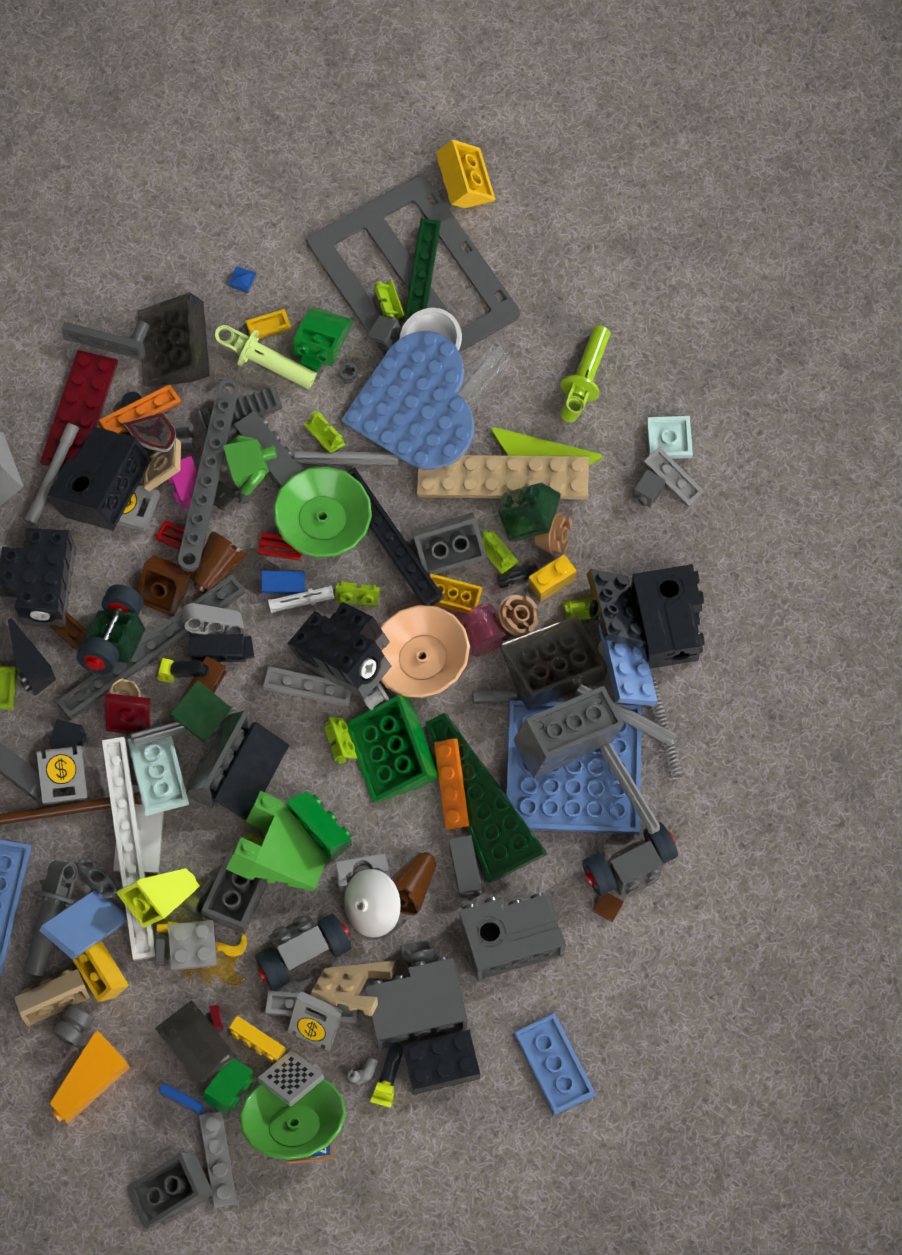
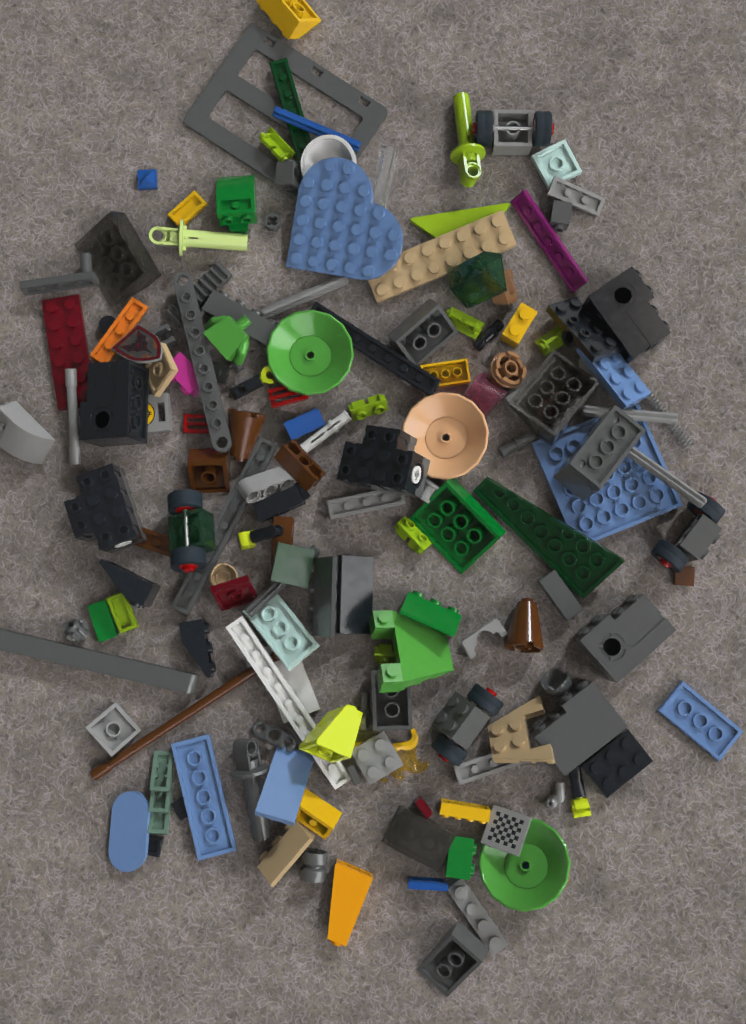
camera: 20 degrees left, 15 degrees up
(61, 770) = (204, 665): light grey container -> none
(249, 520) = (252, 384): none -> black piece
(257, 619) = (299, 465): none -> reddish brown piece
(314, 1027) = (504, 777): light grey container -> none
(326, 435) = (279, 284): lime hinge -> none
(372, 903) = (503, 660): white dish -> none
(434, 298) = (310, 126): none -> blue axle
(451, 784) = (518, 533): orange plate -> none
(625, 509) = (549, 241): none -> magenta tile
(636, 384) = (512, 130): none -> brick

